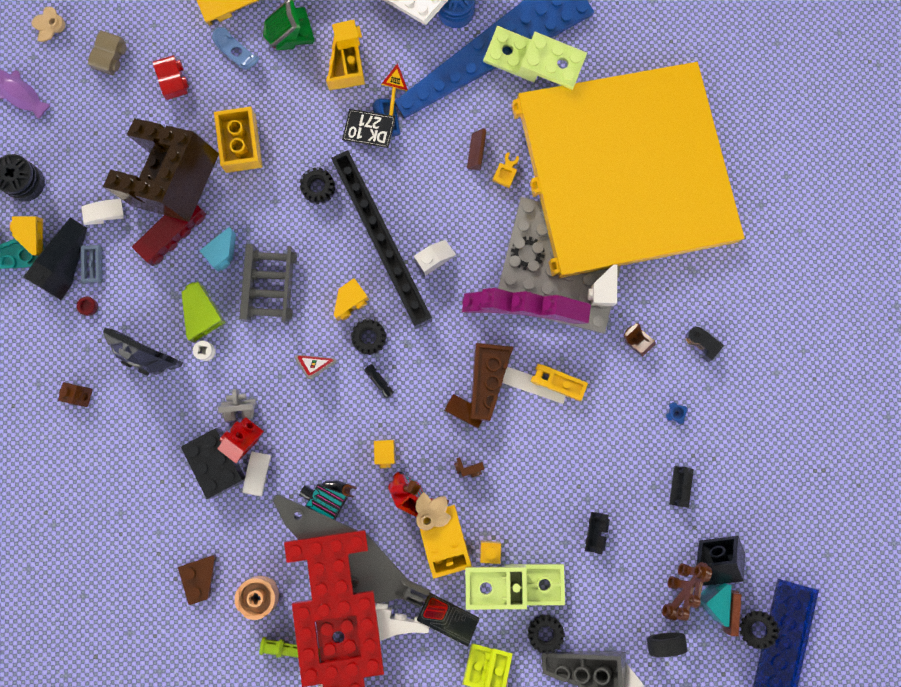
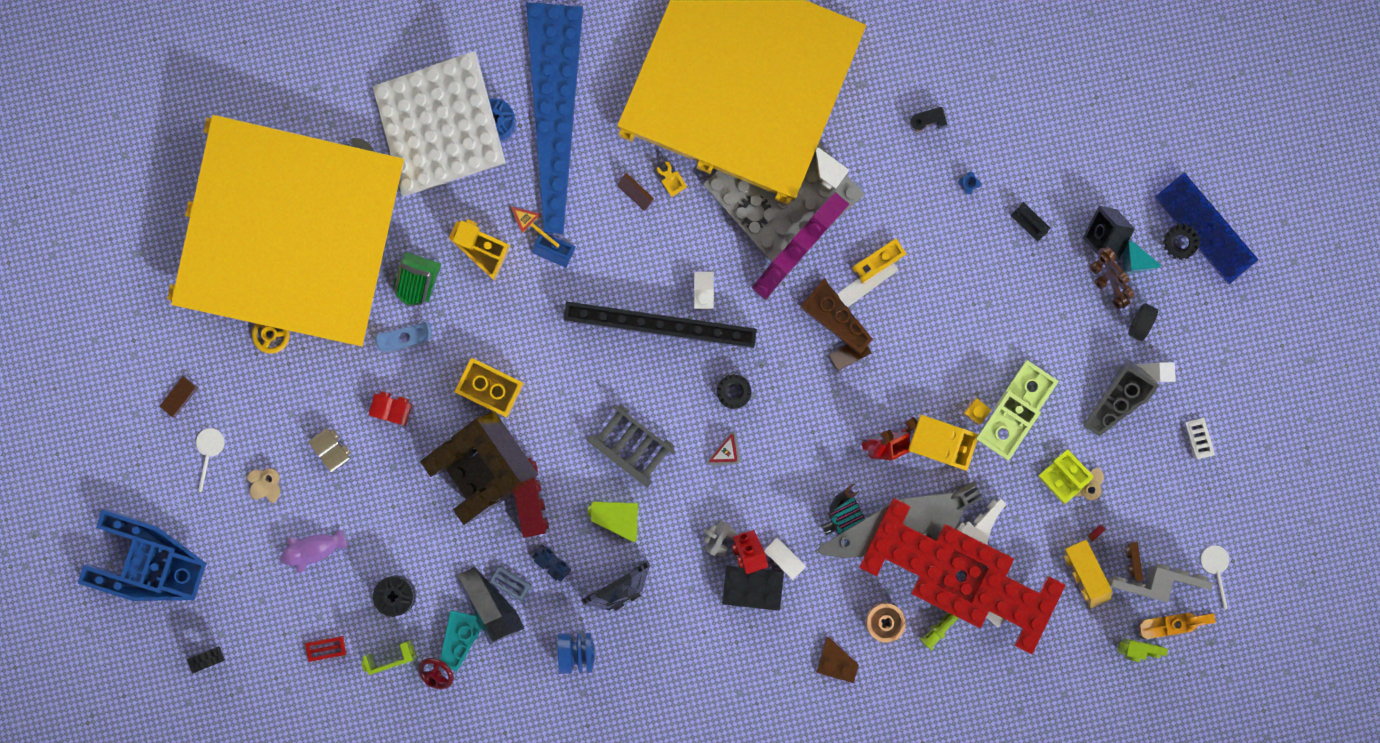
camera: 60 degrees left, 5 degrees up
(28, 232) = (452, 616): yellow slope -> none
(61, 352) = (575, 653): none -> blue wheel
(75, 394) = (614, 667): reddish brown bracket -> none
(87, 306) = (544, 610): dark red tile -> none
(103, 210) = (471, 544): white slope -> none
(130, 279) = (558, 568): none -> dark blue hinge
(207, 353) = (651, 532): white wheel -> none
(220, 250) = (575, 466): medium azure slope -> none
(317, 175) = (574, 359): black tyre -> none
(348, 299) = (690, 386): yellow slope -> none
(369, 128) = (553, 270): black sticker -> none
(379, 381) = (773, 408): black axle -> none
(384, 453) = (839, 443): yellow brick -> none
(433, 509) = (913, 433): tan plate -> none
(448, 619) = (1006, 481): black sticker -> none
(473, 470) = (902, 381): reddish brown bracket -> none
(535, 57) = (593, 89): yellowish green bracket -> none
(554, 643) = (1059, 412): black tyre -> none
(597, 523) = (1014, 310): black hinge -> none
(638, 339) = (889, 171): bracket -> none
(733, 629) = (1154, 253): copper slope -> none

